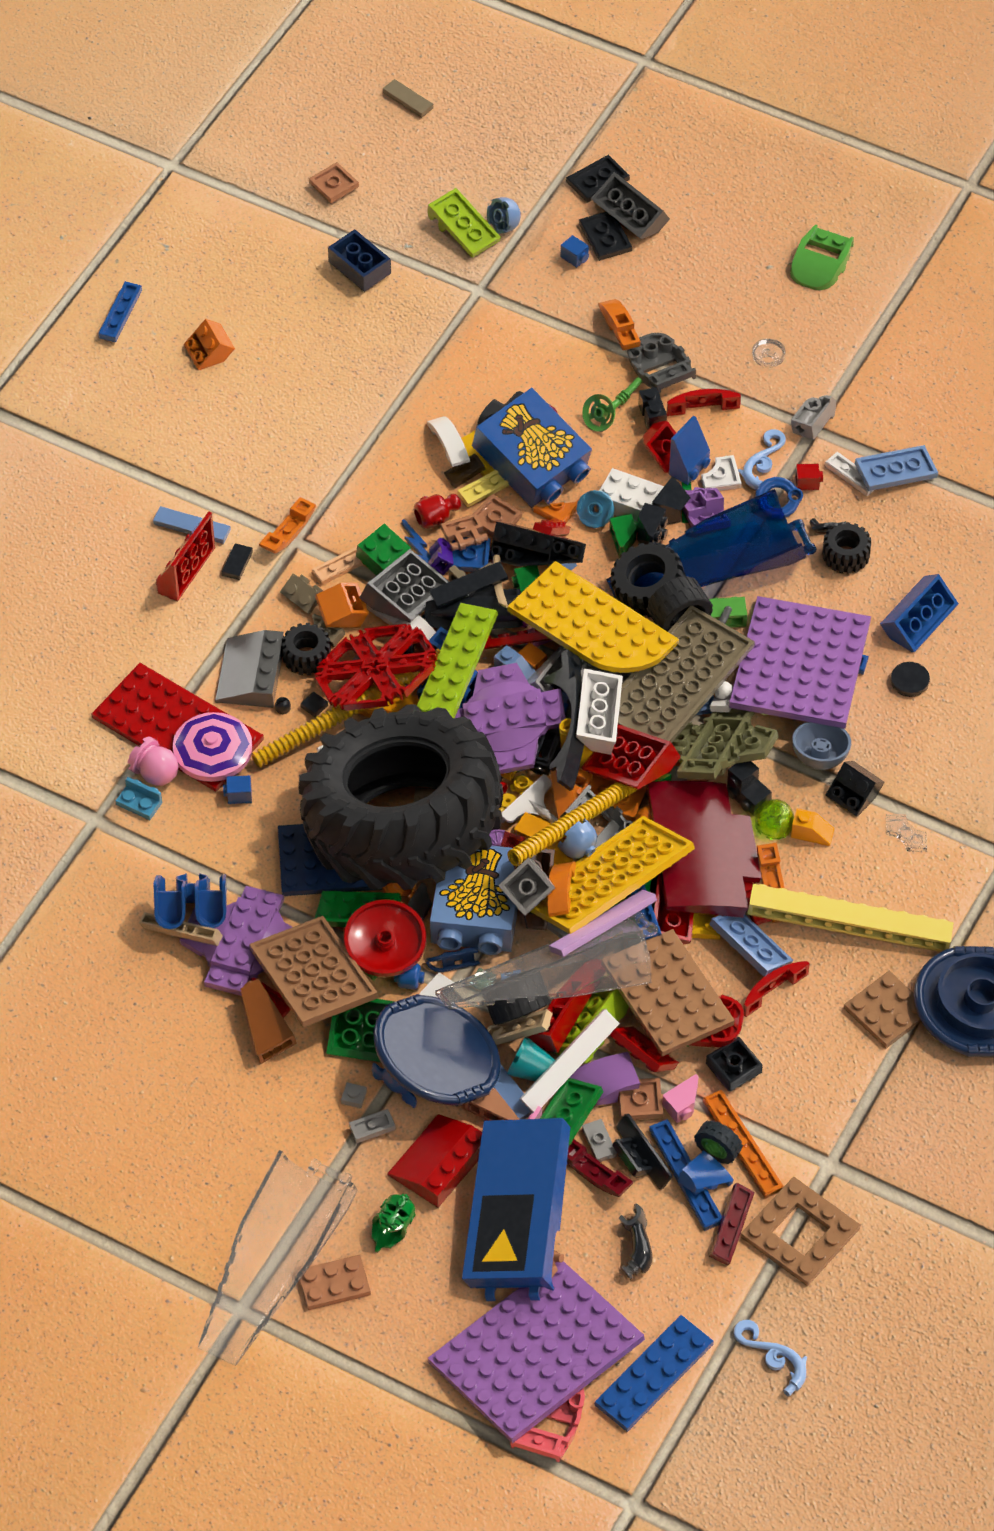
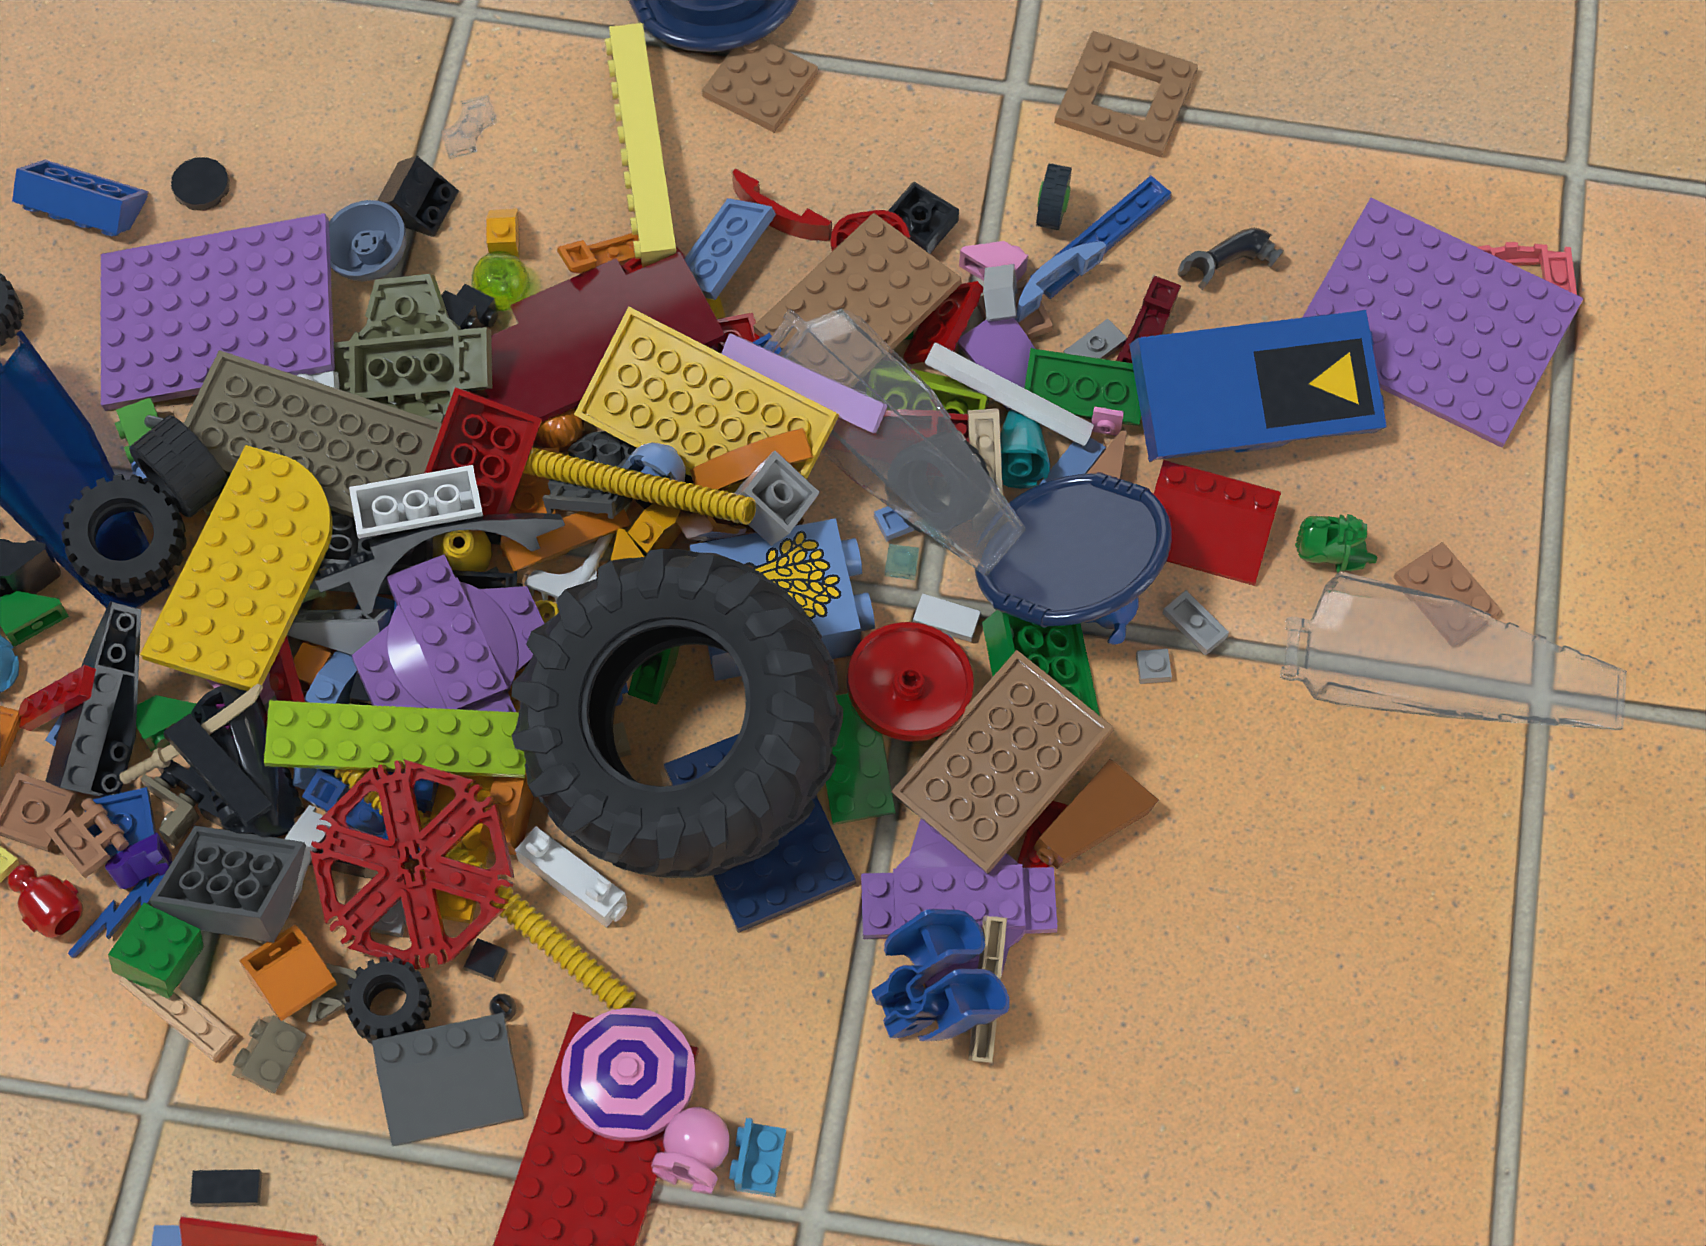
camera: 110 degrees left, 10 degrees up
(238, 789) = (692, 1009): blue brick -> none
(290, 527) = (133, 1127): orange slope -> none
(449, 958) = (887, 611): dark blue piece -> none
(639, 1154) = (1098, 291): black bracket -> none
(644, 1101) = (1080, 258): none -> medium blue slope
(654, 1373) = (1357, 177): blue plate -> none
(657, 1083) = (1000, 293): none -> light grey slope
(704, 1173) = (1100, 207): blue slope -> none
(731, 1224) = (1152, 164): dark red tile -> none
(750, 1155) = (1025, 187): orange tile -> none
(774, 1350) = (1302, 77): light blue plant -> none

